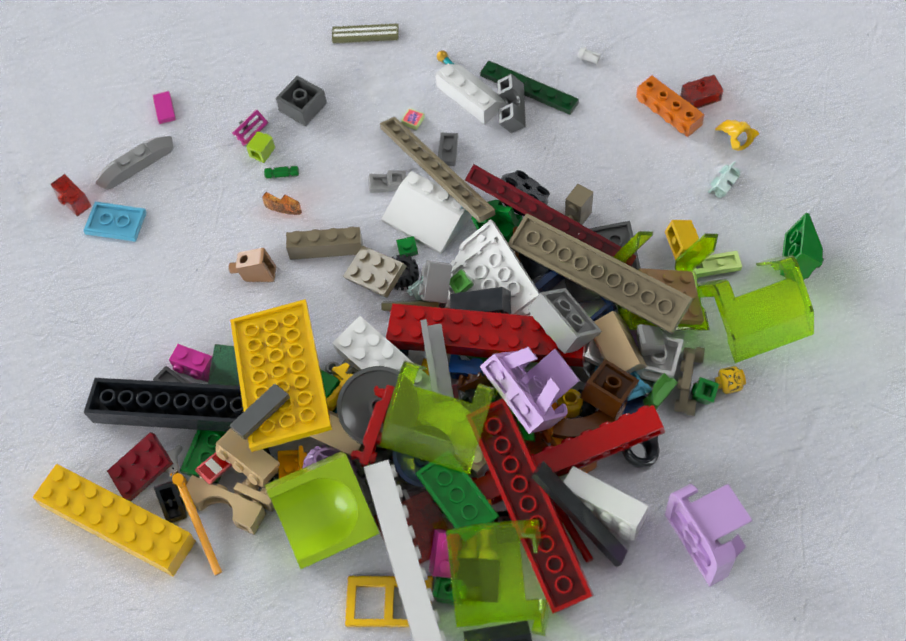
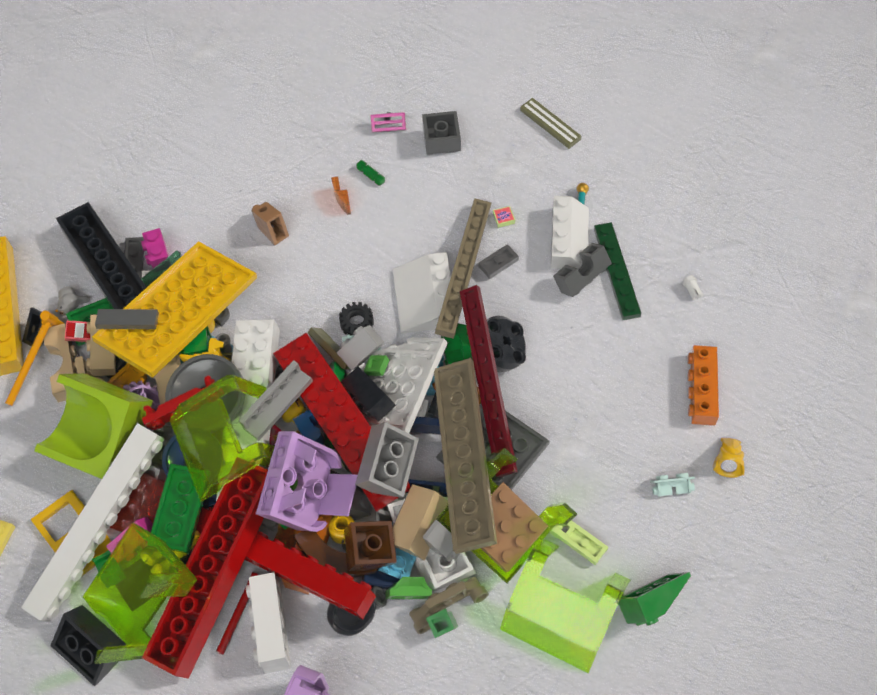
camera: 45 degrees right, 0 degrees up
(70, 195) = (225, 67): clear red brick -> none
(115, 221) = (233, 110): medium azure tile -> none
(134, 161) = (291, 79): light grey brick -> none
(140, 467) = (47, 287): dark red plate -> none
(164, 107) = (354, 58): dark pink tile -> none
(261, 146) = (378, 142): lime brick -> none
(323, 243) = (333, 249): dark tan brick -> none
(374, 271) = (336, 300): plate -> none
(386, 182) = (427, 244): light grey slope -> none
(407, 246) = (384, 306): green plate -> none
(579, 204) = (530, 392): dark tan brick -> none
(579, 514) = (236, 610): black tile -> none
(680, 235) = (579, 494): yellow brick -> none
(702, 91) = (744, 398): clear red brick -> none
(730, 379) = (474, 636): yellow head -> none

